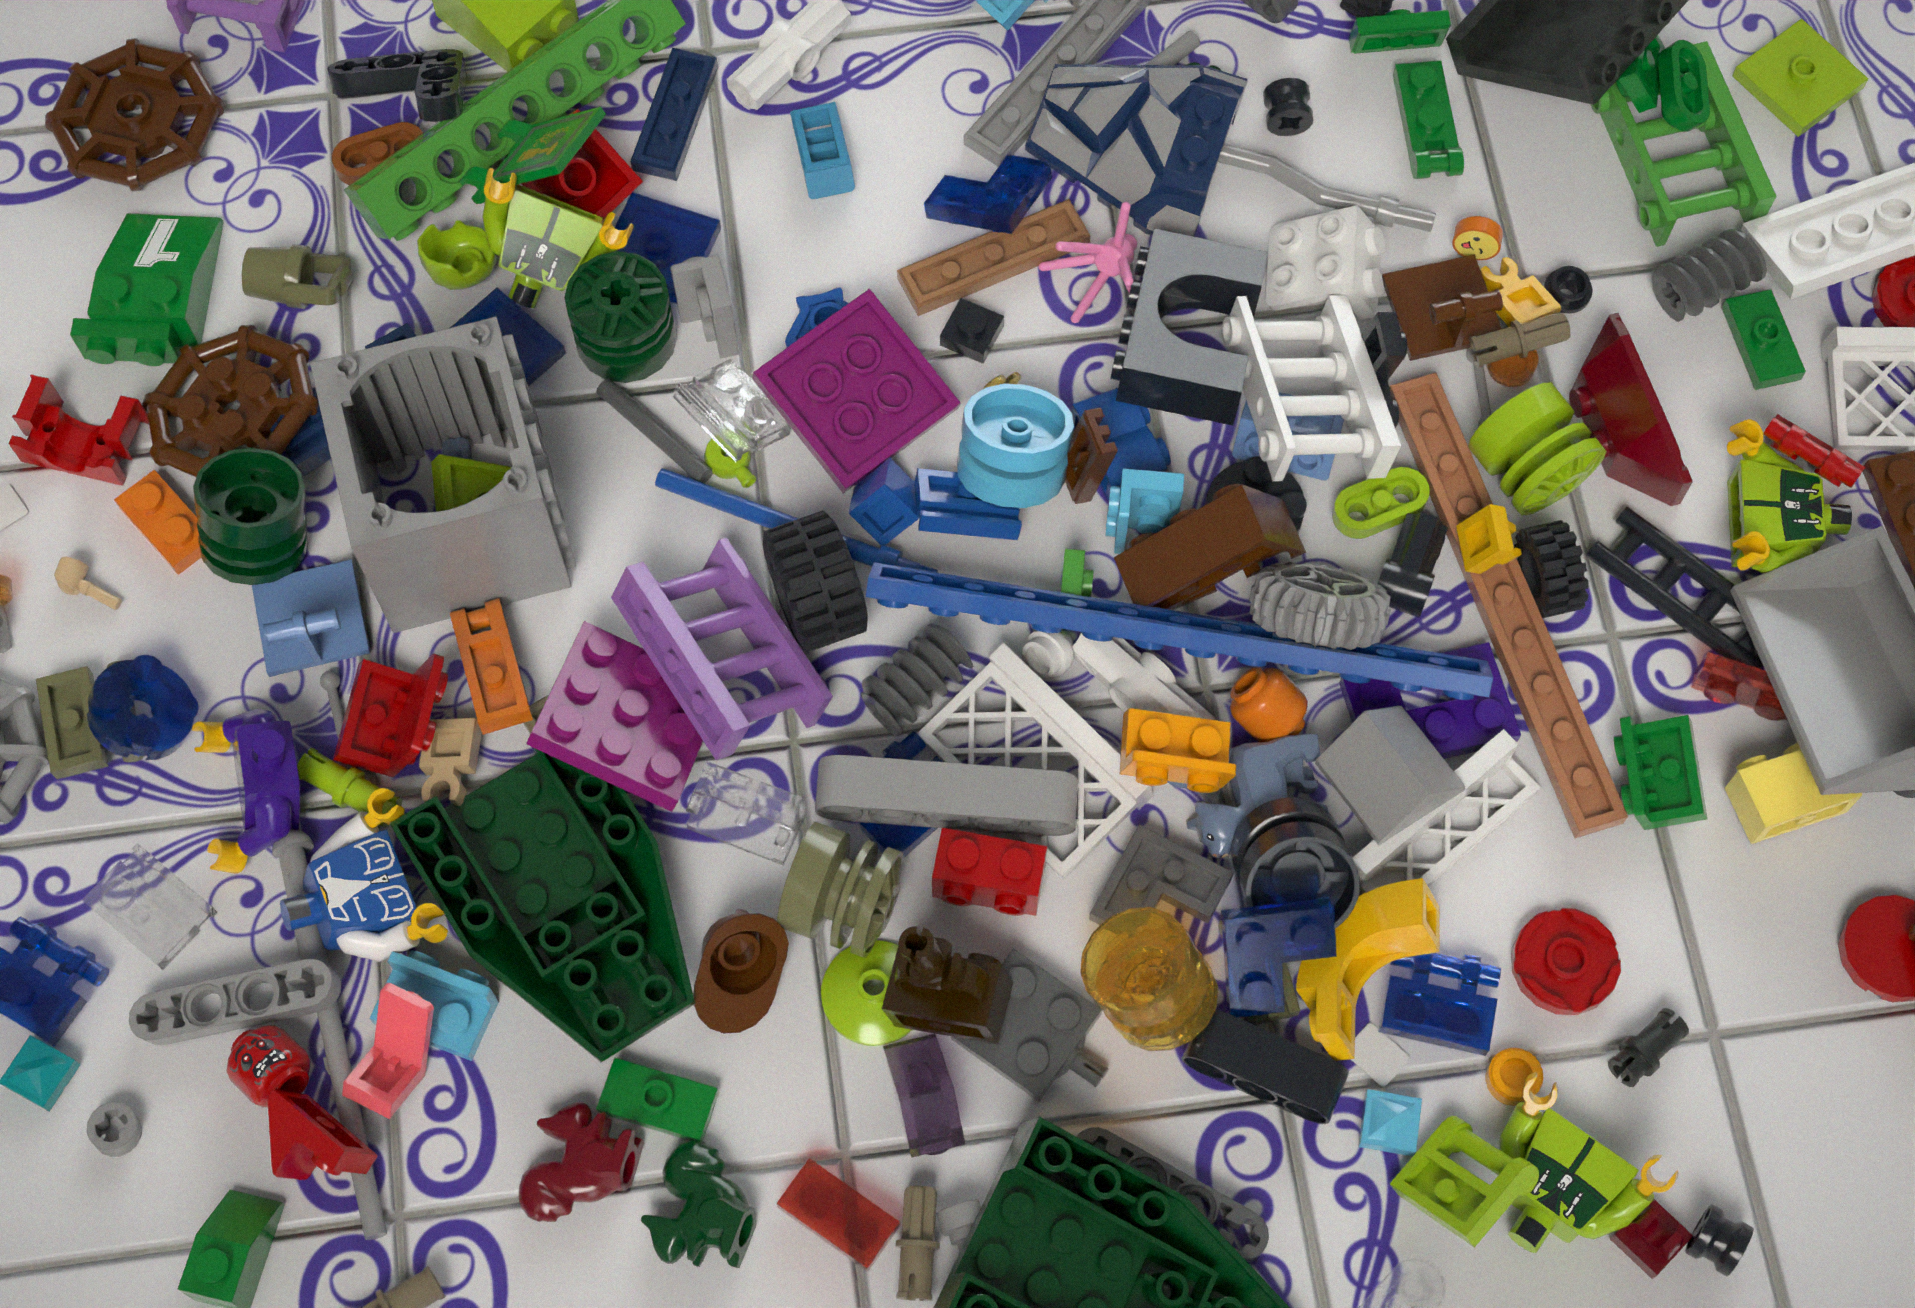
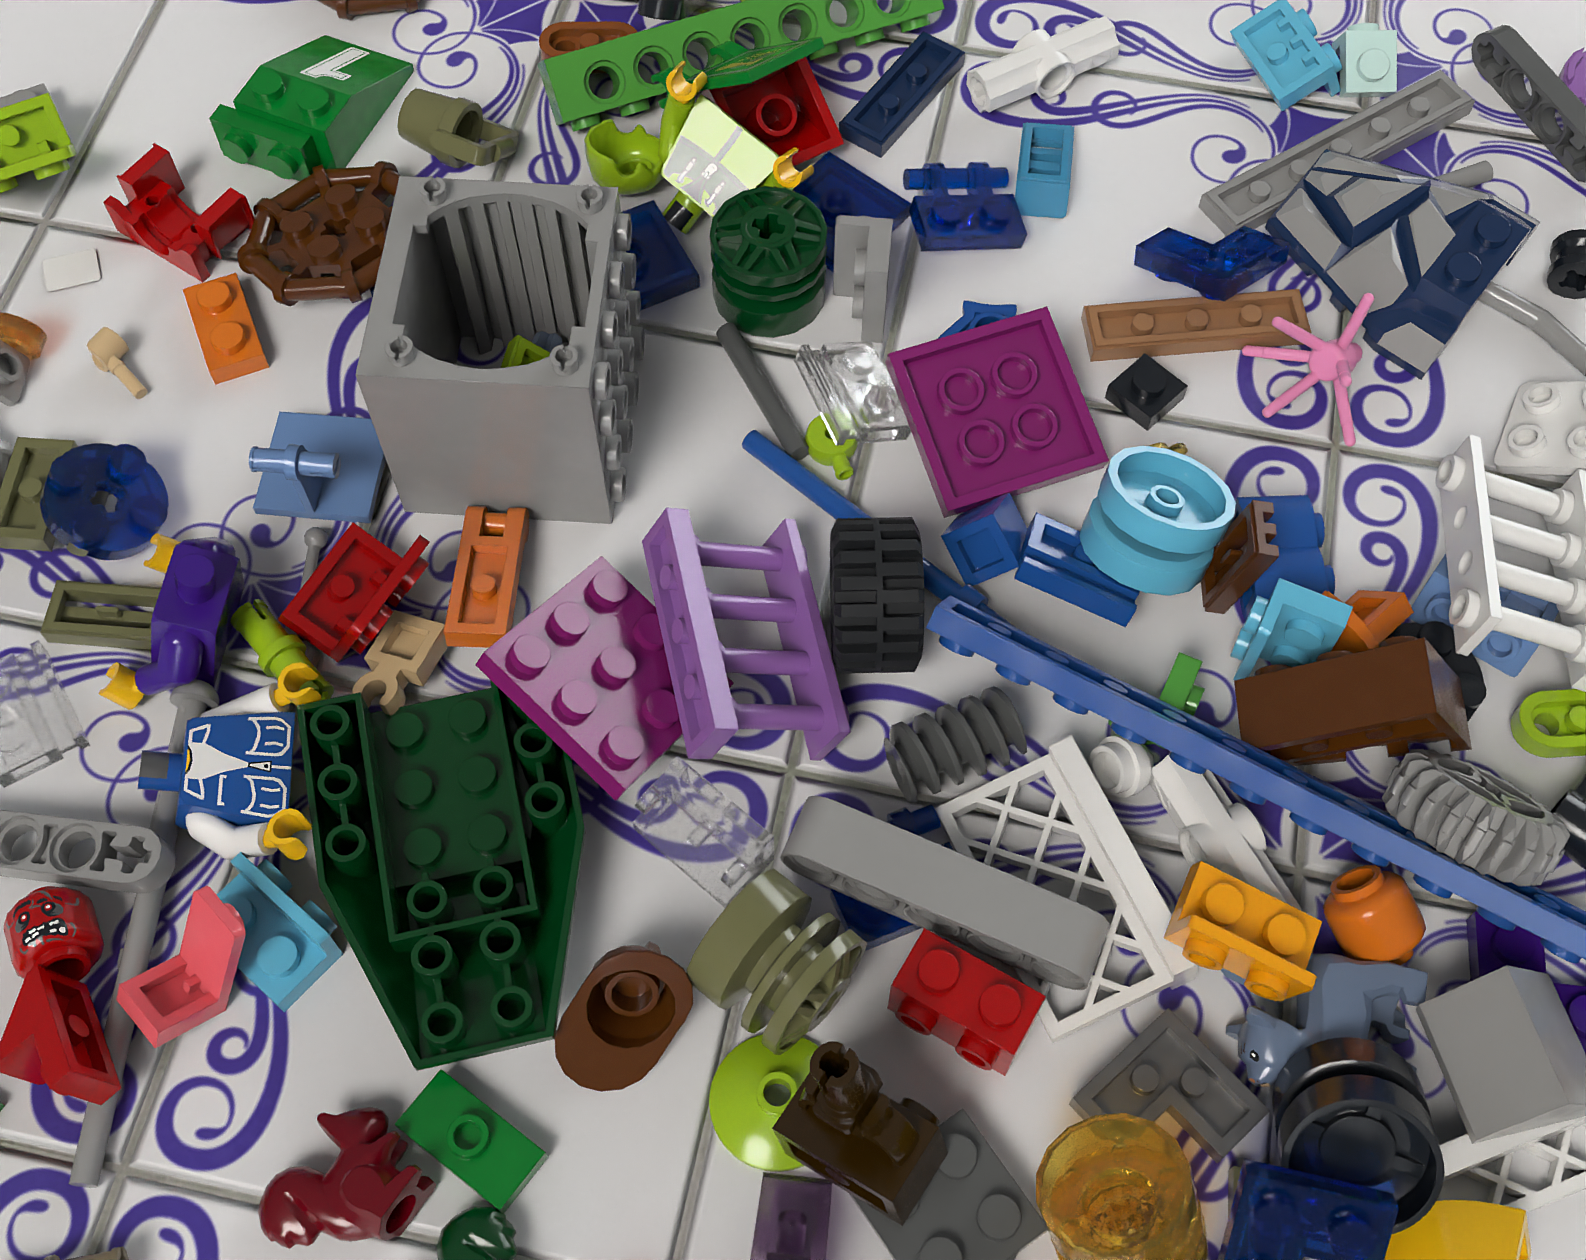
camera: 20 degrees right, 5 degrees down
(189, 820) = (57, 630): none -> olive tile
(251, 516) = (300, 339): dark green wheel -> none
(773, 222) = (963, 221): none -> clear blue plate
(1162, 368) = (1364, 491): arch -> none
(1202, 472) = (1371, 619): none -> orange tile

